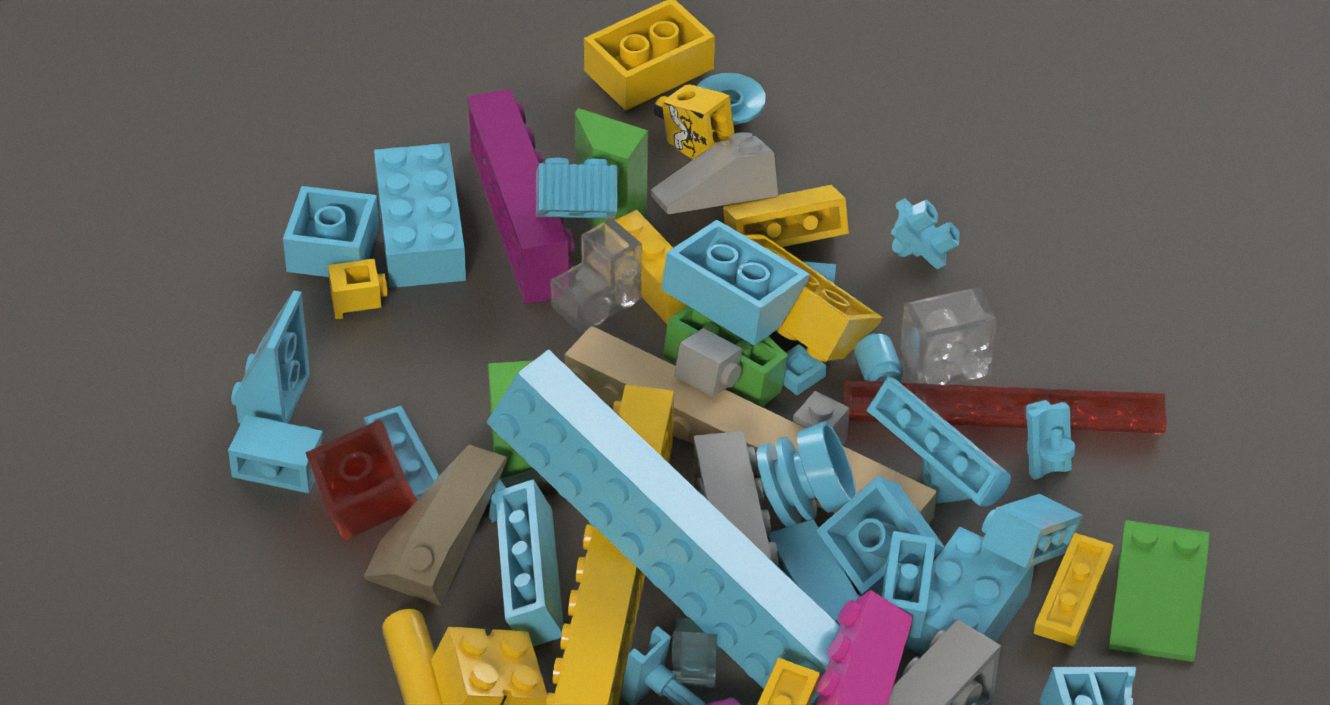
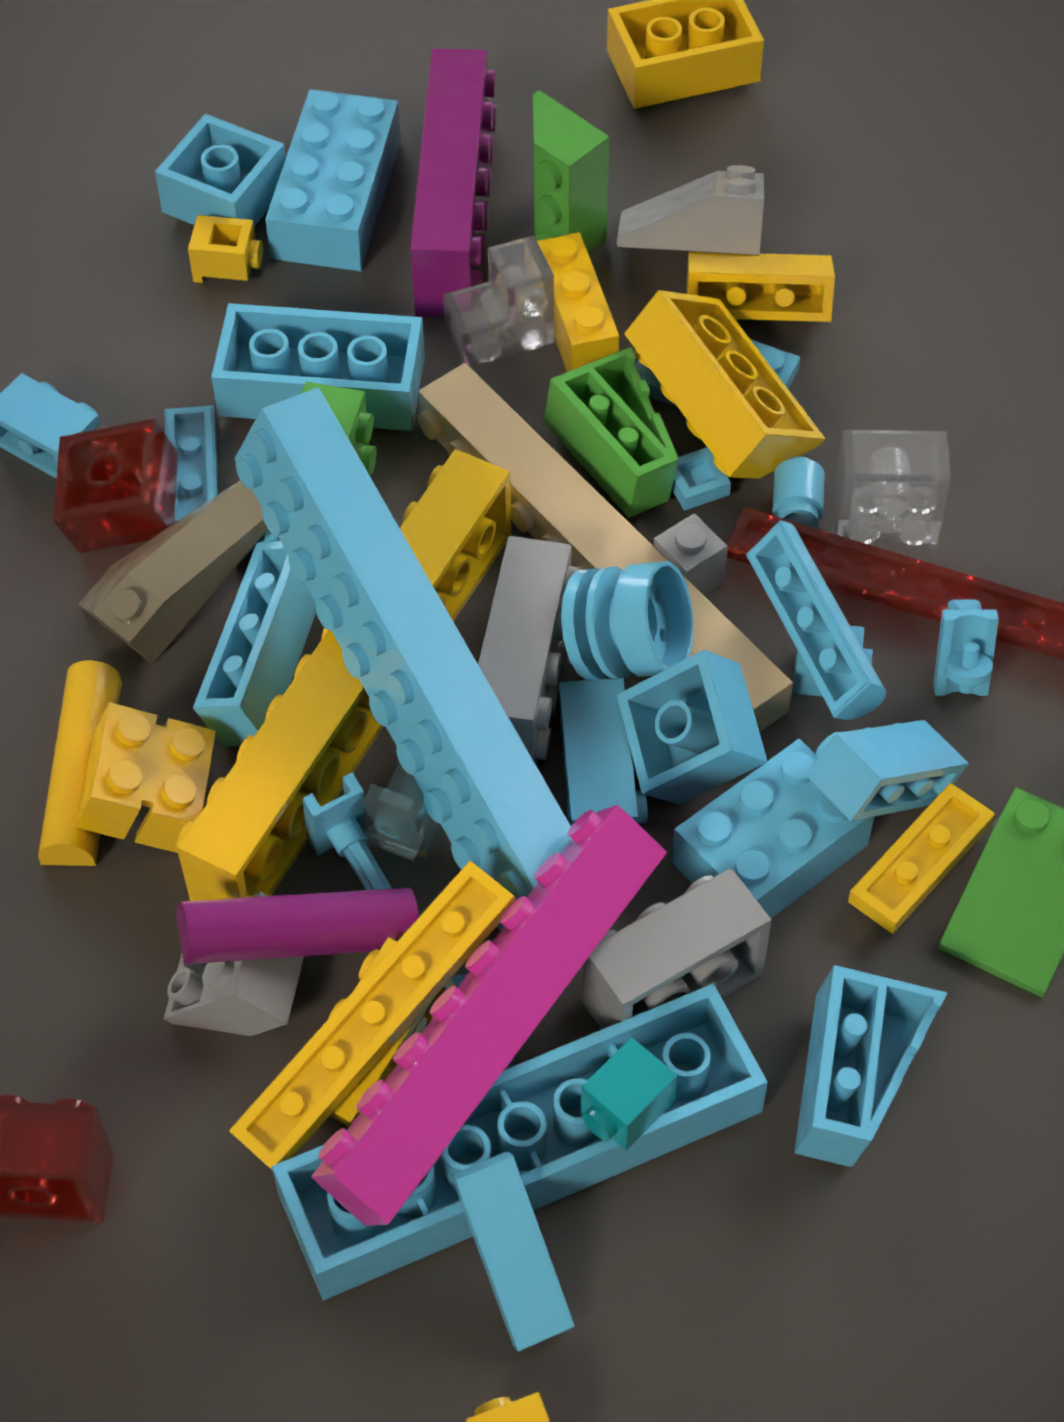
camera: 20 degrees right, 10 degrees up
(277, 369) = (80, 325): medium azure slope -> none
(447, 356) = (274, 350): none -> medium azure brick
(576, 189) = (496, 190): medium azure brick -> none
(695, 119) = (703, 135): yellow torso -> none
(708, 362) = (575, 444): light grey brick -> none
(733, 281) = (642, 349): medium azure slope -> none
(745, 94) = (758, 121): medium azure dish -> none
(908, 584) = (684, 800): medium azure brick -> none
(917, 234) = (914, 342): medium azure hips -> none

